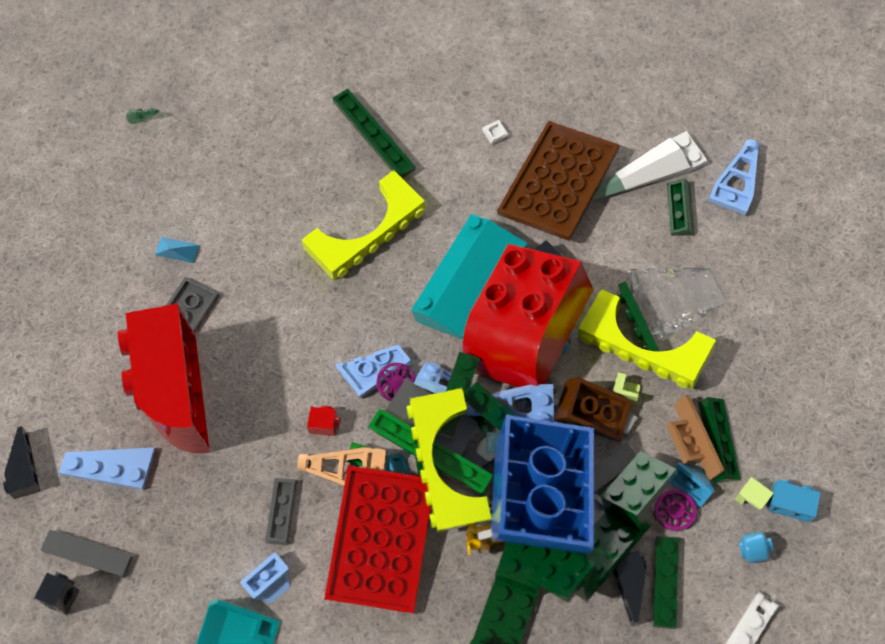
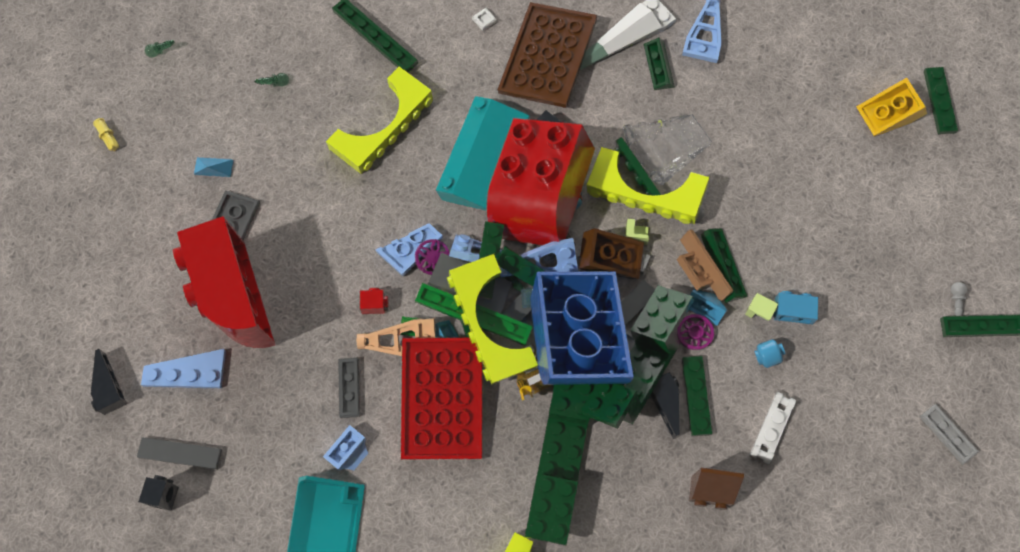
camera: 10 degrees left, 5 degrees up
(70, 199) = (106, 134): none -> light yellow axle
(264, 166) = (280, 79): none -> clear green bar

